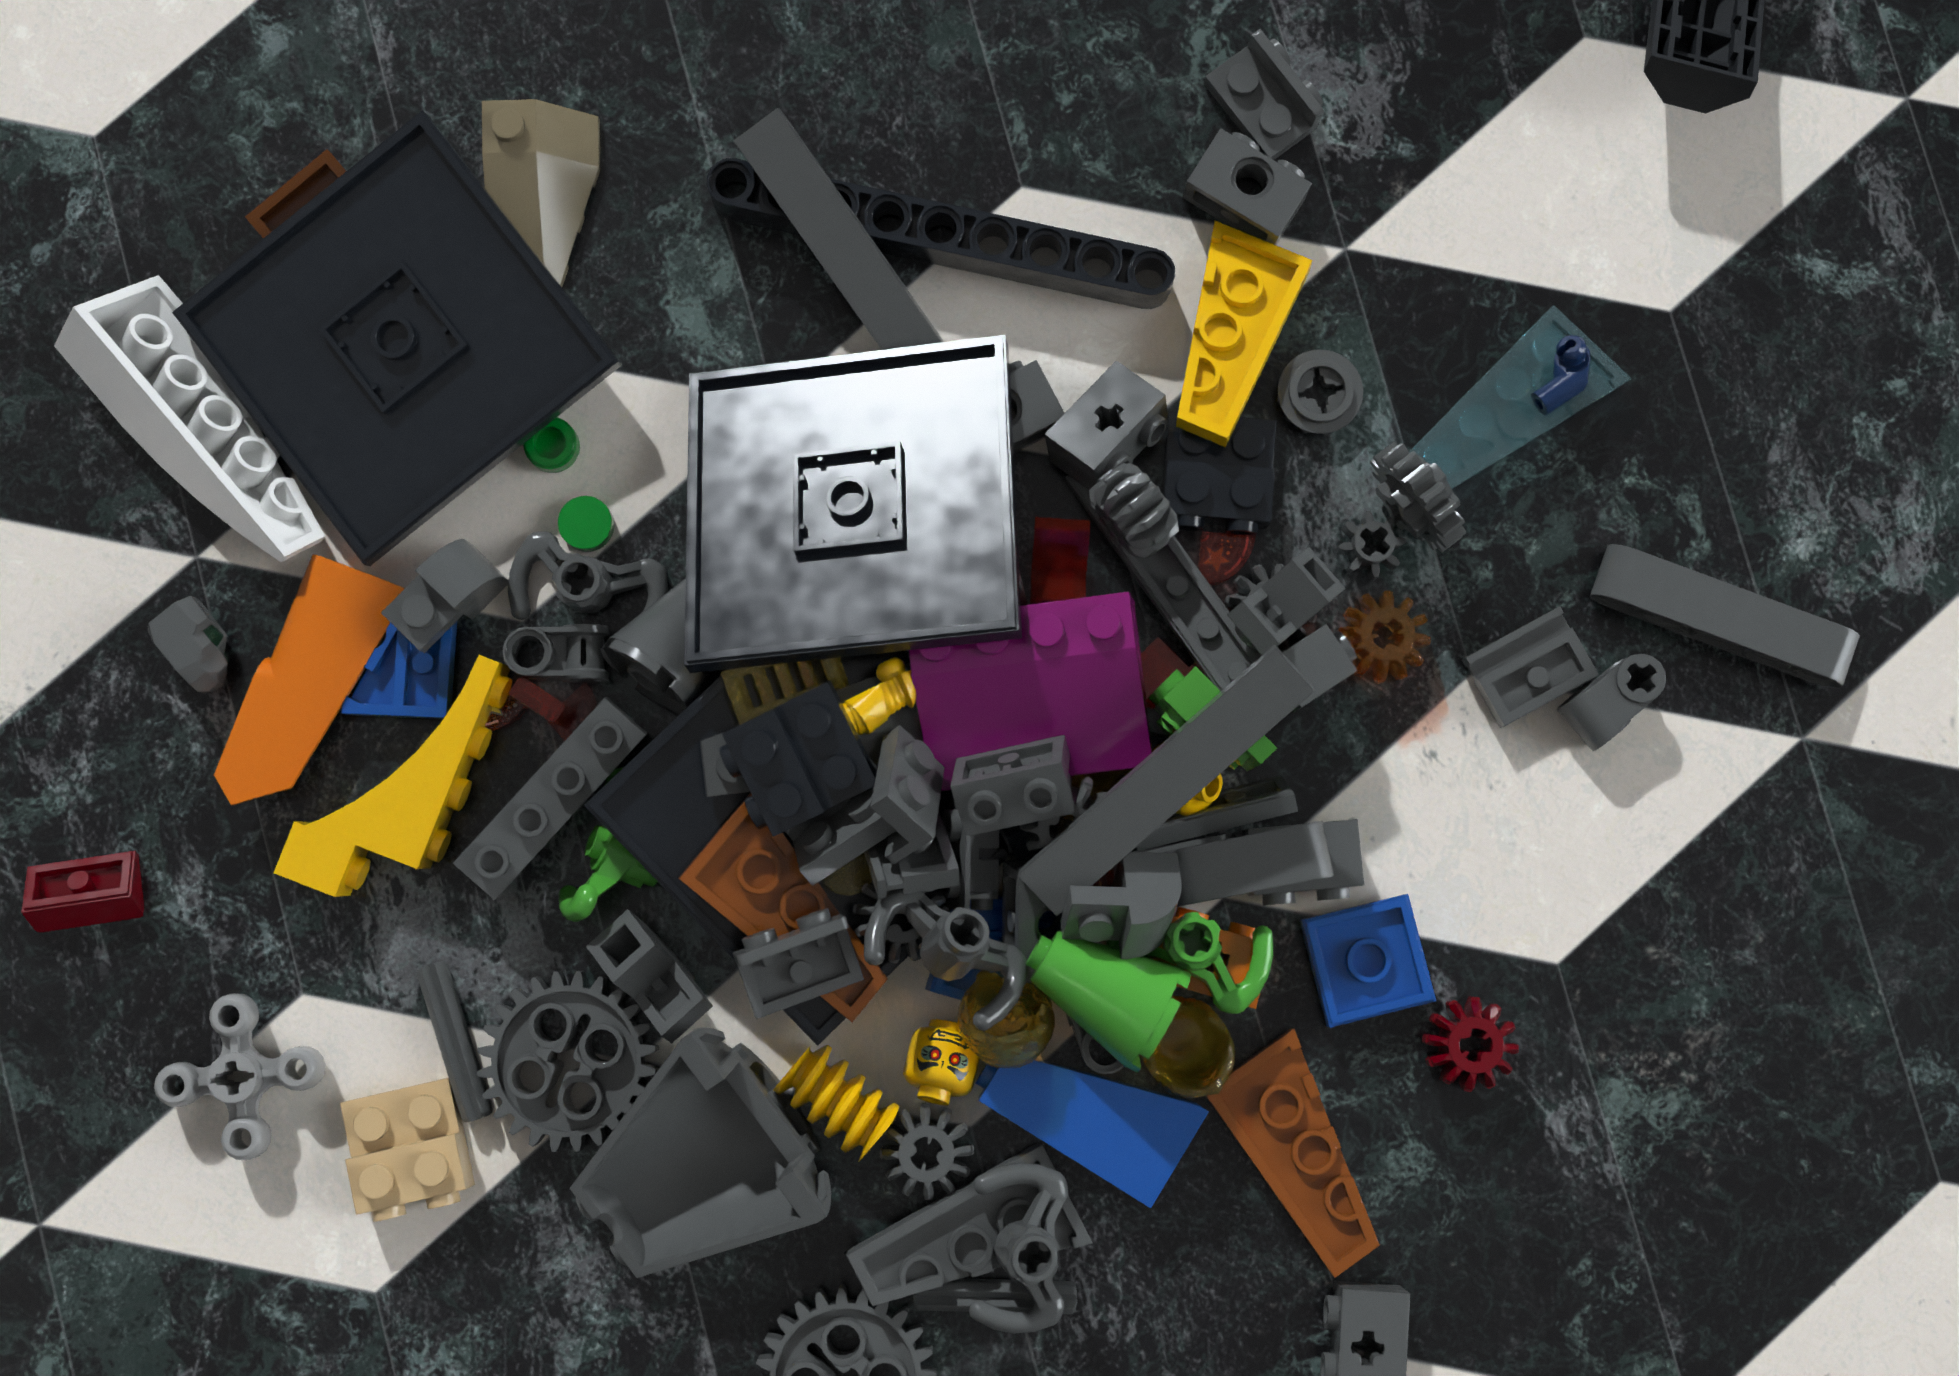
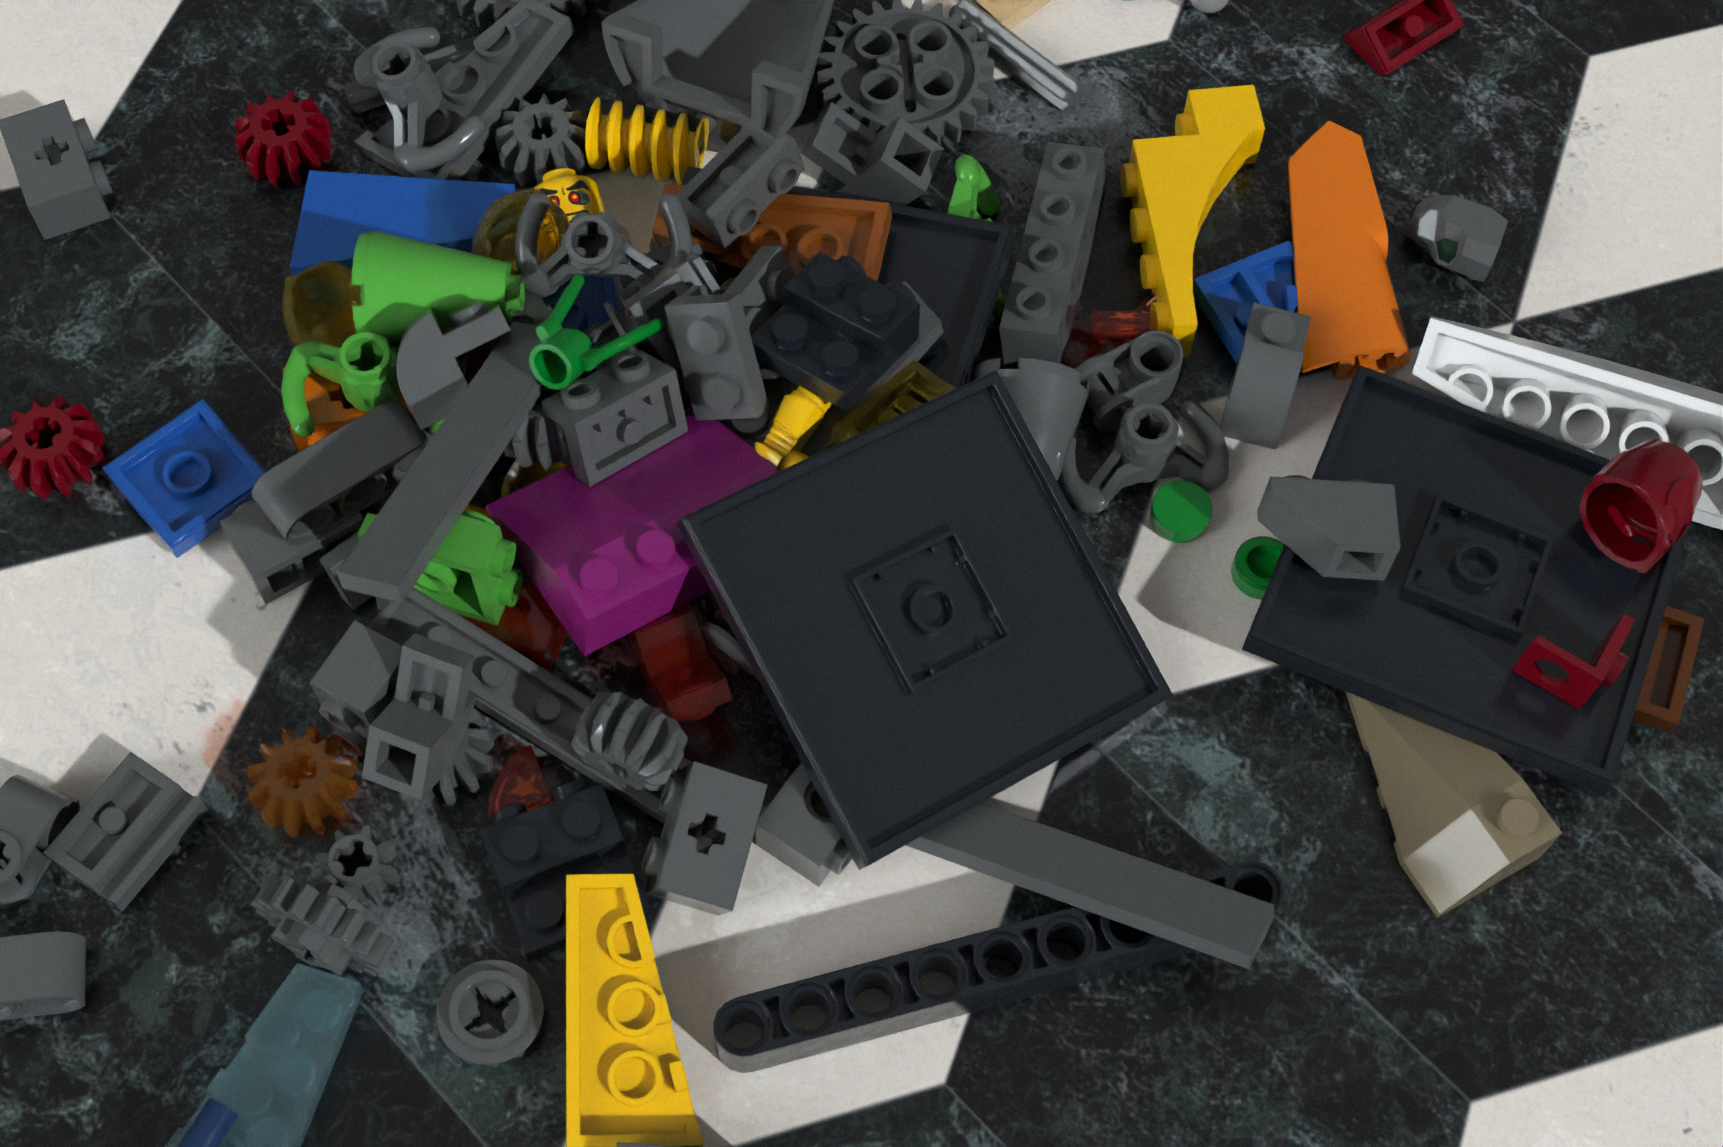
camera: 150 degrees right, 20 degrees down
(216, 308) = (1643, 495): none -> dark red helmet
(366, 195) = (1583, 677): none -> dark red bracket
(490, 403) = (1334, 525): none -> dark grey slope
(1035, 839) = (569, 352): none -> green plant
(1137, 1285) = (283, 139): none -> dark red gear
(1285, 1132) = (200, 296): dark orange wing -> none

